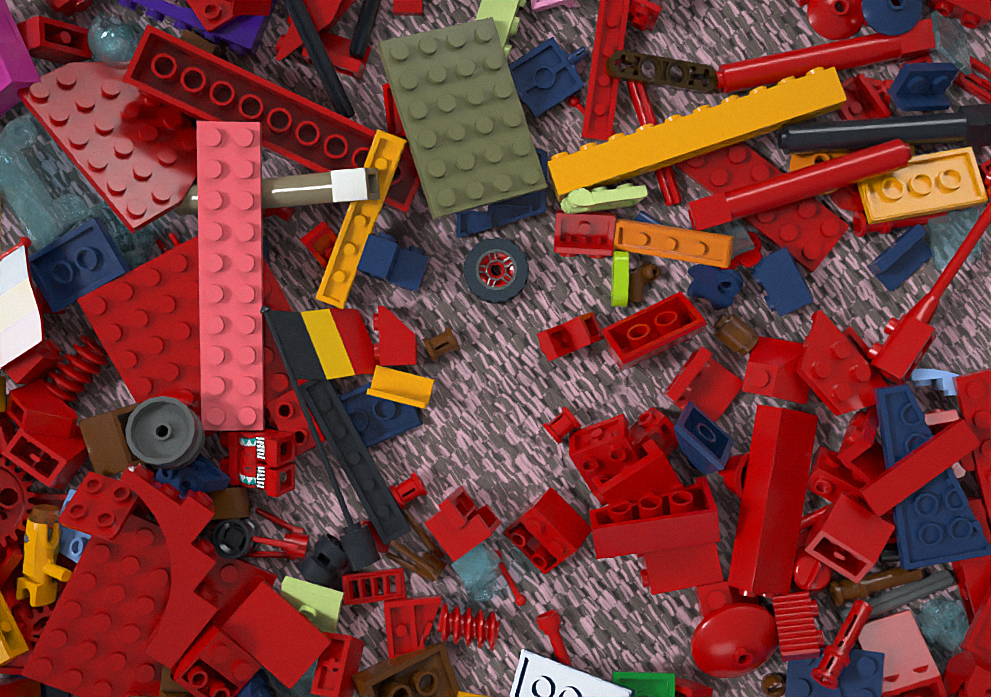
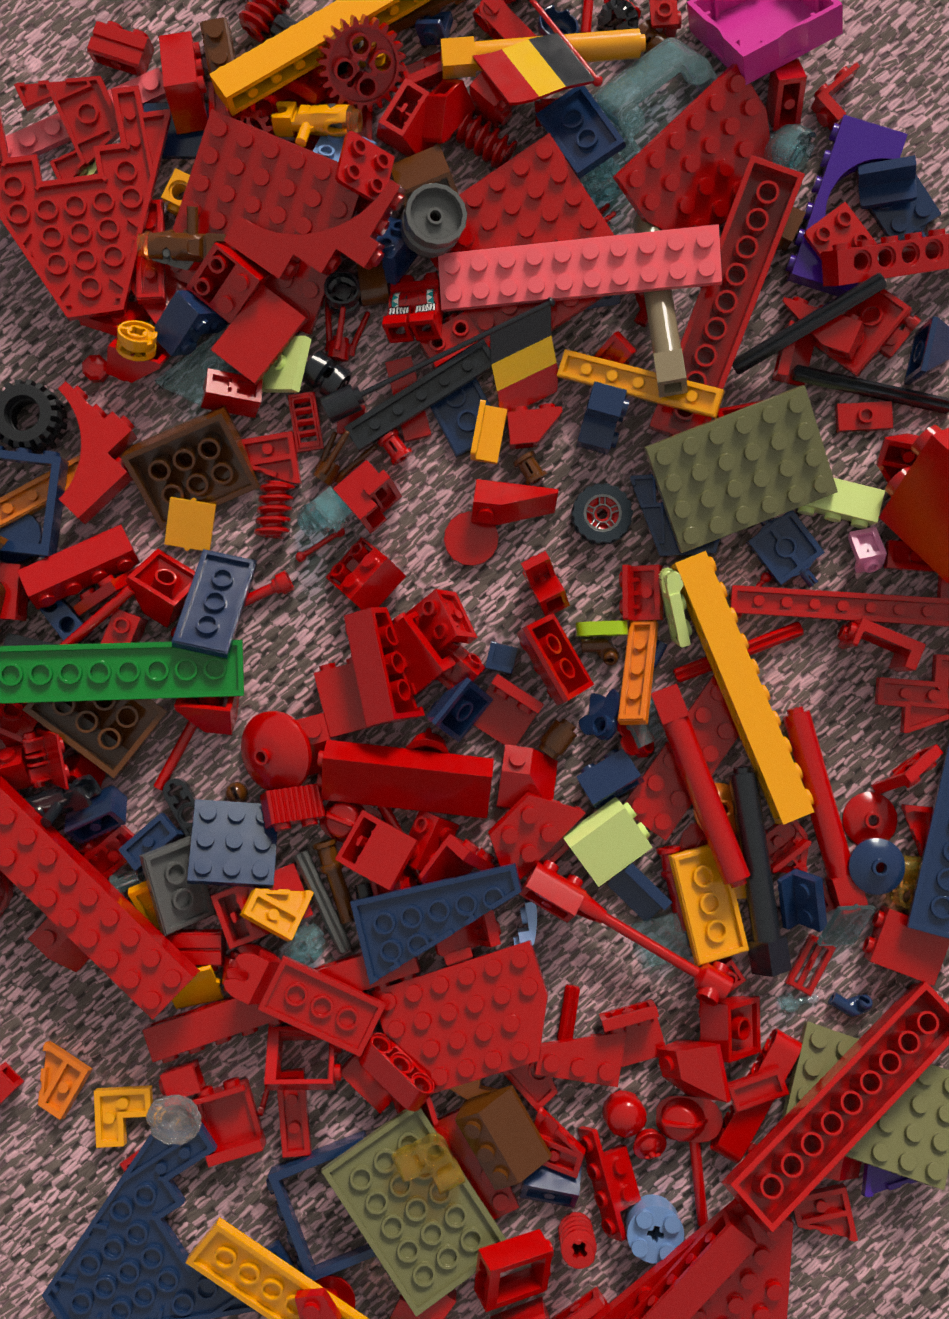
camera: 85 degrees right, 0 degrees up
(387, 463) = (418, 426): none -> red tile
(478, 371) = (509, 502): none -> red slope
(513, 413) = (470, 541): none -> red tile
(562, 425) = (462, 583): red bush -> none
(645, 389) = (501, 658): none -> dark blue panel
(662, 68) = (794, 655): dark brown beam -> none
(837, 655) = (269, 841): red pin -> none
(849, 287) = (608, 840): none -> yellowish green brick
(909, 650) = (277, 910): none -> light orange wing
(919, 467) = (445, 906): red tile -> none

